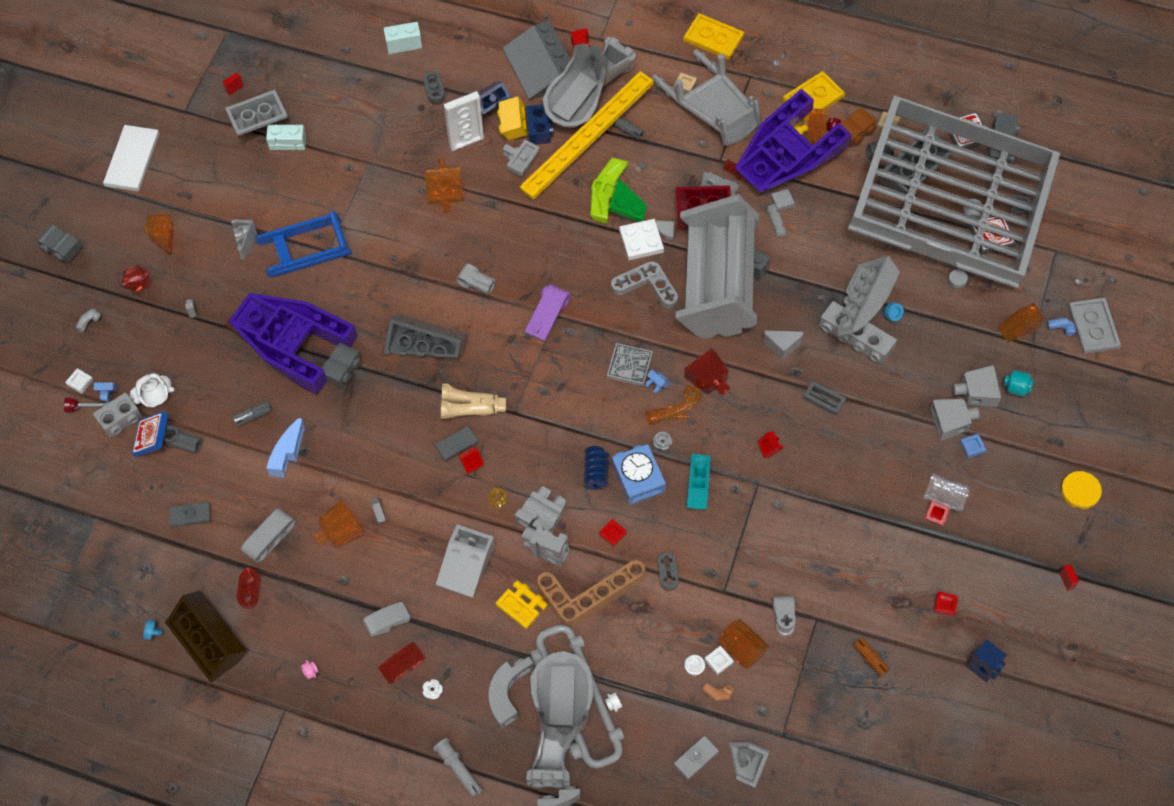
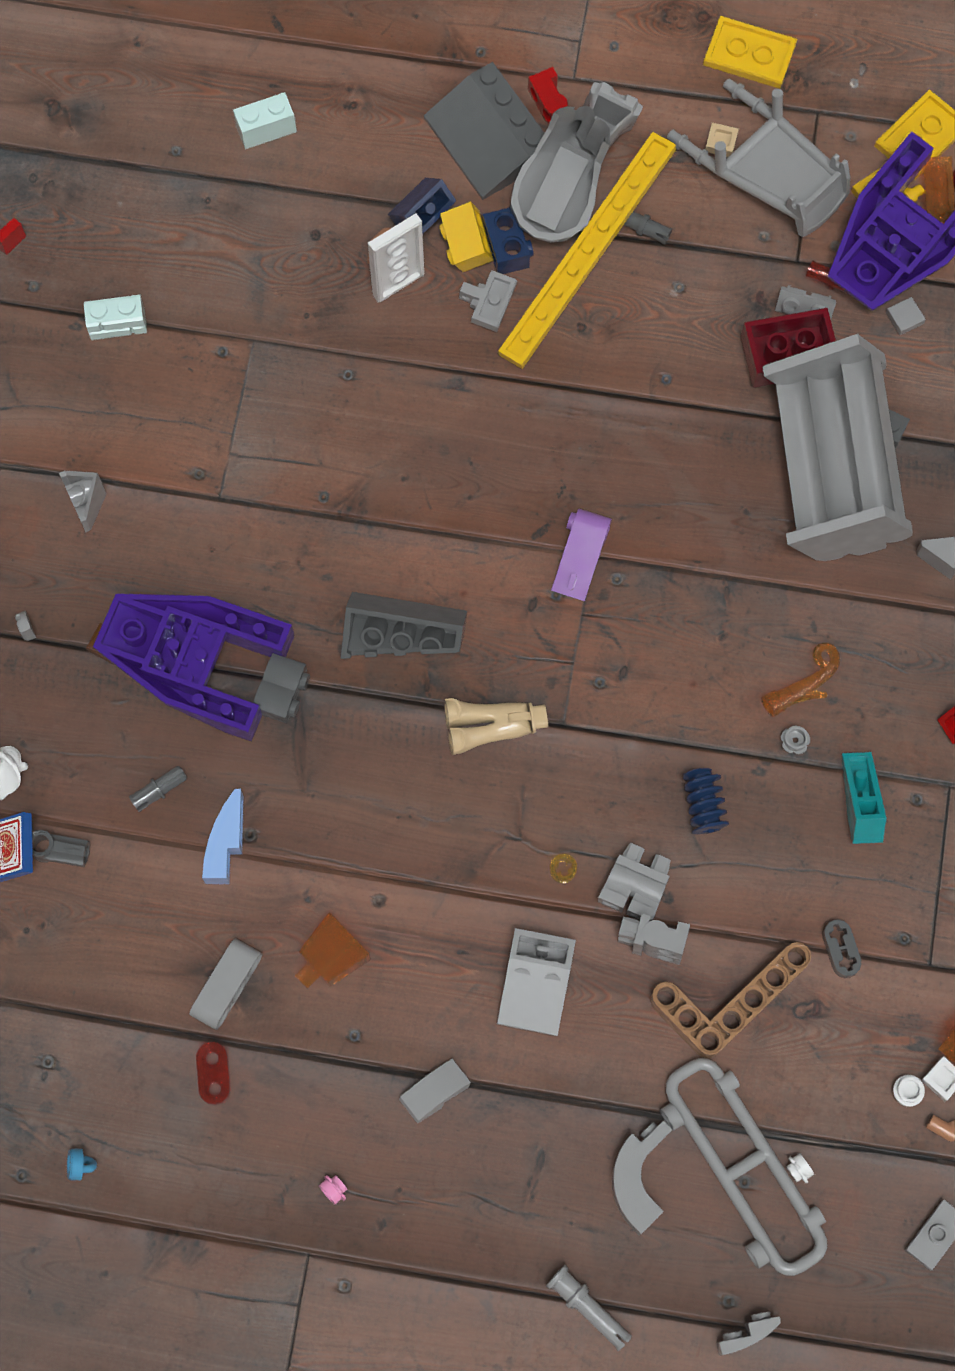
camera: 10 degrees left, 10 degrees up
(190, 514) = (97, 967): dark grey plate -> none
(205, 635) = (163, 1160): dark brown slope -> none
(256, 113) = (60, 285): light grey slope -> none
(287, 265) = (160, 531): blue piece -> none
(377, 509) = (385, 916): light grey tile -> none
(401, 662) = (470, 1156): clear red slope -> none
(432, 684) = (519, 1197): white plate -> none
(435, 90) = (330, 201): dark grey plate -> none
(444, 185) = (379, 364): clear orange plate -> none
(456, 444) = (483, 790): dark grey tile -> none
(471, 460) = (511, 814): red tile -> none
(473, 278) = (453, 513): light grey piece -> none
(517, 608) = (629, 1043): yellow plate -> none
(562, 702) = (731, 1186): light grey animal -> none
(603, 188) = (632, 336): lime plate -> none
(613, 533) = (747, 899): red tile -> none
(626, 202) = (669, 355): green wing -> none
(629, 364) = (722, 622): tile -> none
(638, 474) = (769, 799): medium blue brick -> none
(641, 239) = (701, 411): white plate -> none
(651, 278) = (730, 476): light grey beam -> none
(659, 379) = (773, 641): medium blue tile -> none
(666, 229) = (736, 389): light grey tile -> none
(708, 373) = (846, 620): clear red torso -> none
(776, 220) = (902, 351): light grey axle -> none

